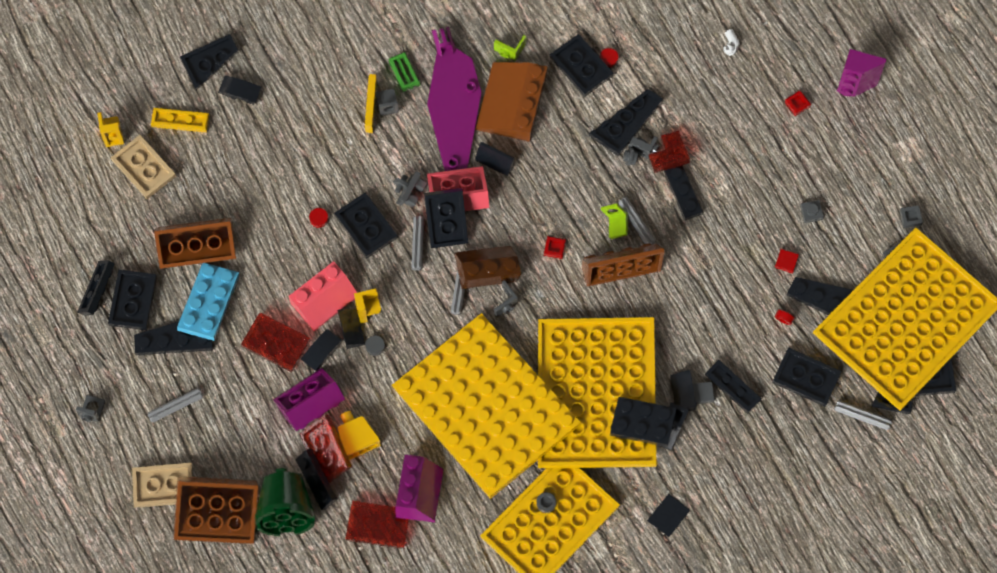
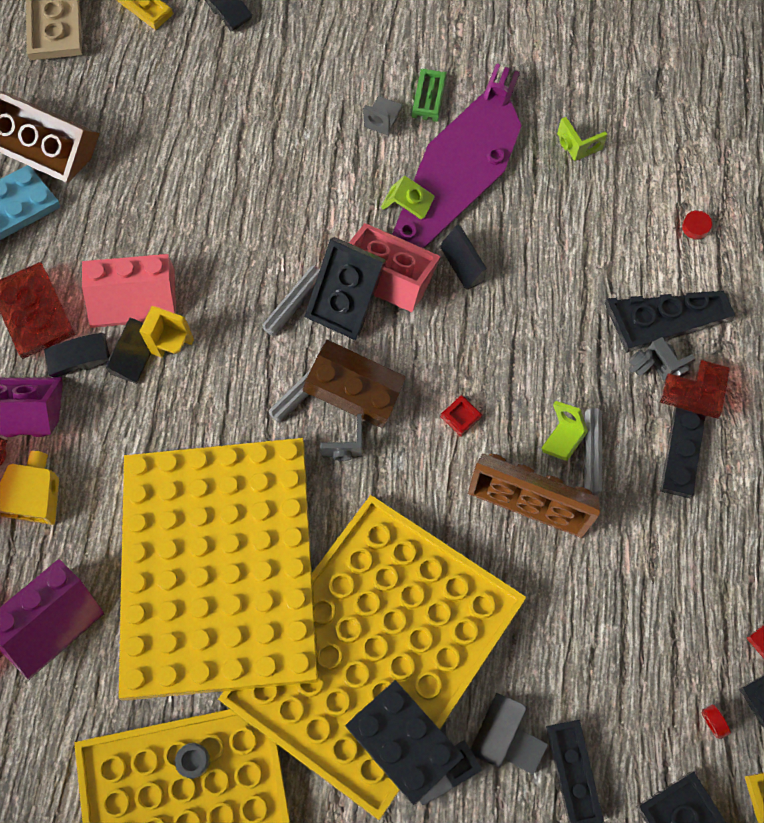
camera: 35 degrees right, 0 degrees up
(318, 217) = (200, 197): red tile -> none
(366, 225) = (247, 240): black plate -> none
(370, 104) = (353, 112): yellow tile -> none
(375, 345) = (145, 392): dark grey tile -> none
(406, 196) = (321, 235): dark grey hips -> none
(439, 142) = (409, 196): none -> lime bracket
(512, 99) = (538, 202): dark orange slope -> none
(581, 65) = (655, 212): black plate -> none

